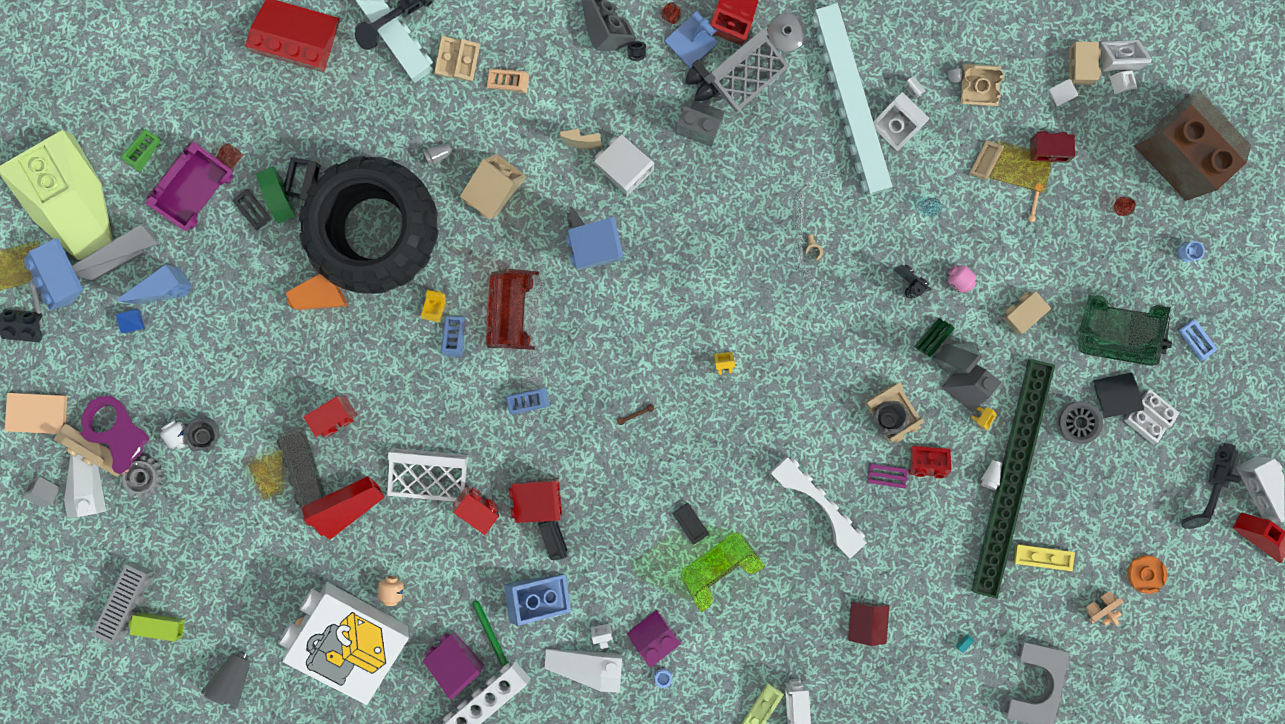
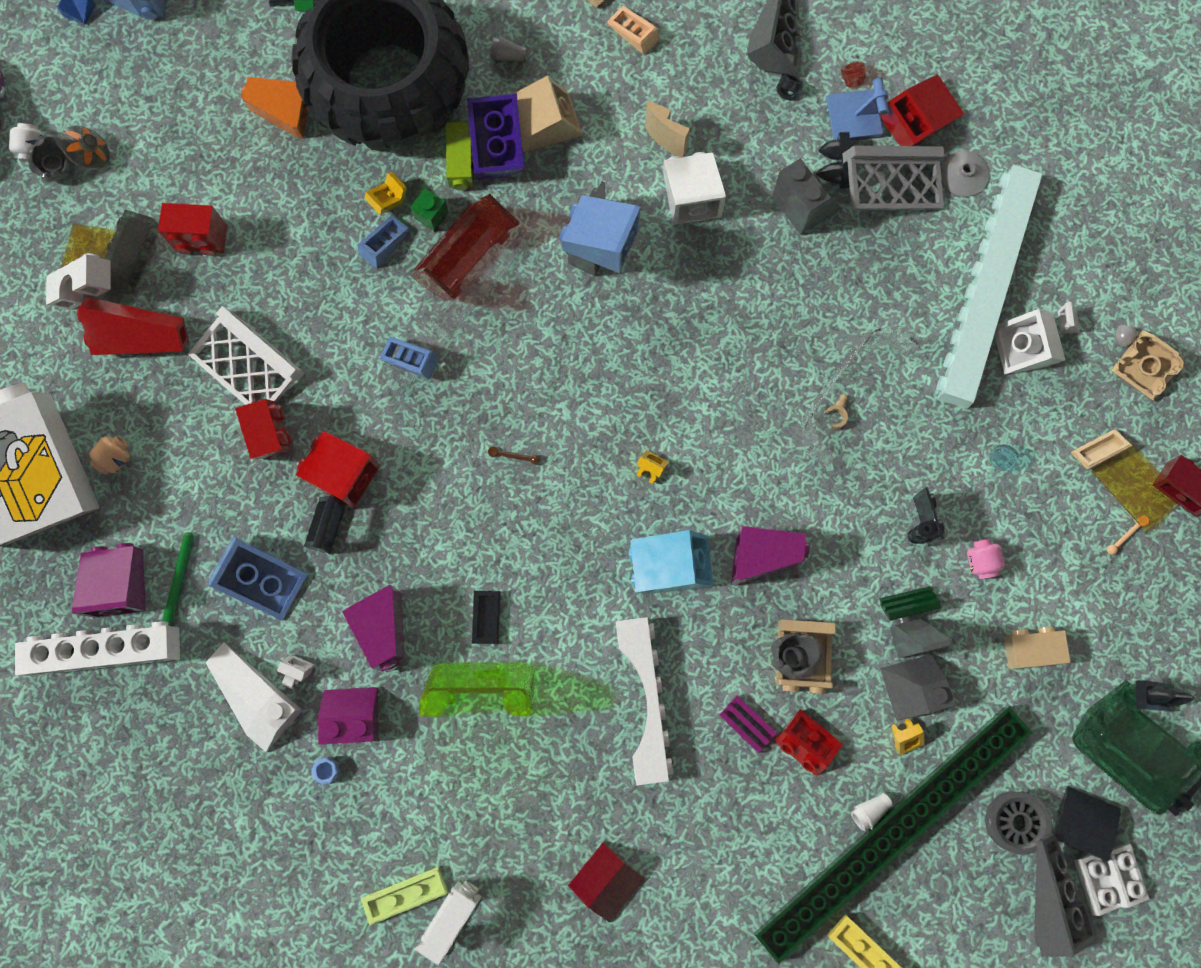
camera: 40 degrees right, 10 degrees down
(216, 418) = (84, 147): none -> clear smoke dish
(286, 501) = (83, 276): none -> white arch
(460, 247) = (459, 156): none -> lime brick
(468, 297) = (429, 209): none -> green brick
(477, 220) = (495, 136): none -> dark purple slope
(635, 577) = (379, 628): none -> magenta slope
(778, 414) = (671, 562): none -> medium azure slope
(831, 370) = (766, 553): none -> magenta slope
(1114, 291) = (1159, 696): none -> black tile
(1137, 459) = (1060, 921): none -> dark grey wedge

